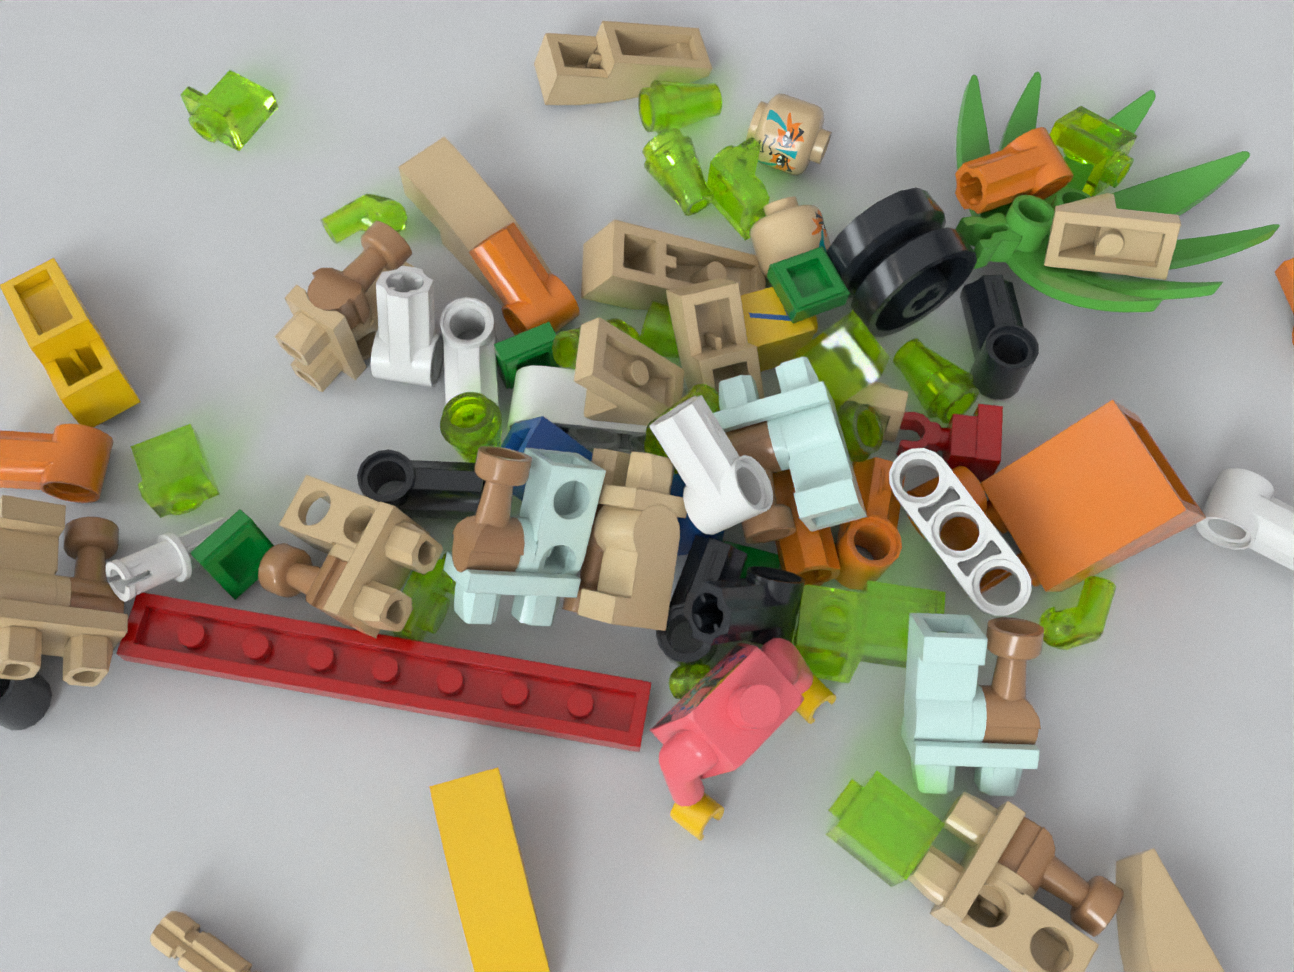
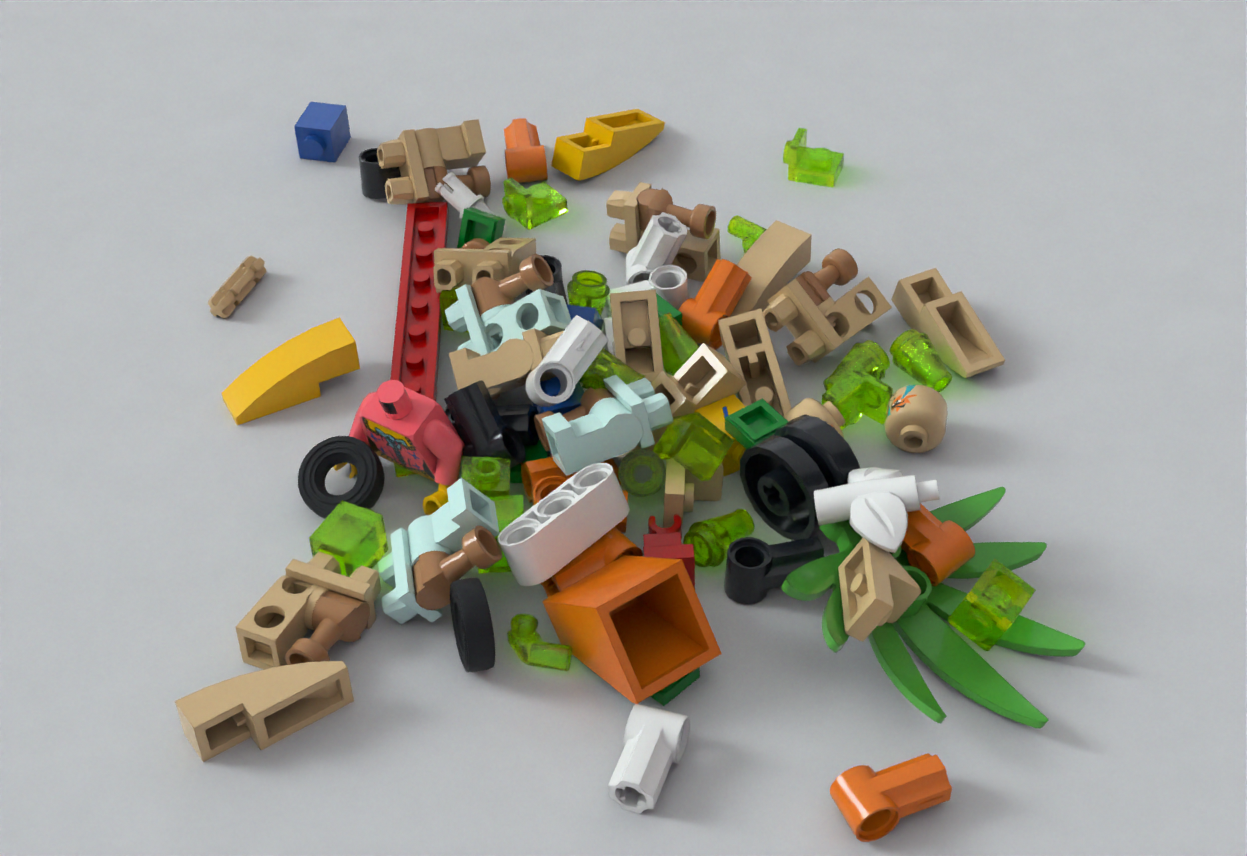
camera: 85 degrees right, 25 degrees down
(585, 163) = (815, 317): none -> tan hips
(797, 836) = (327, 455): none -> black tyre
(1005, 187) = (875, 504): none -> white plant
(1086, 679) = (472, 624): none -> black tyre

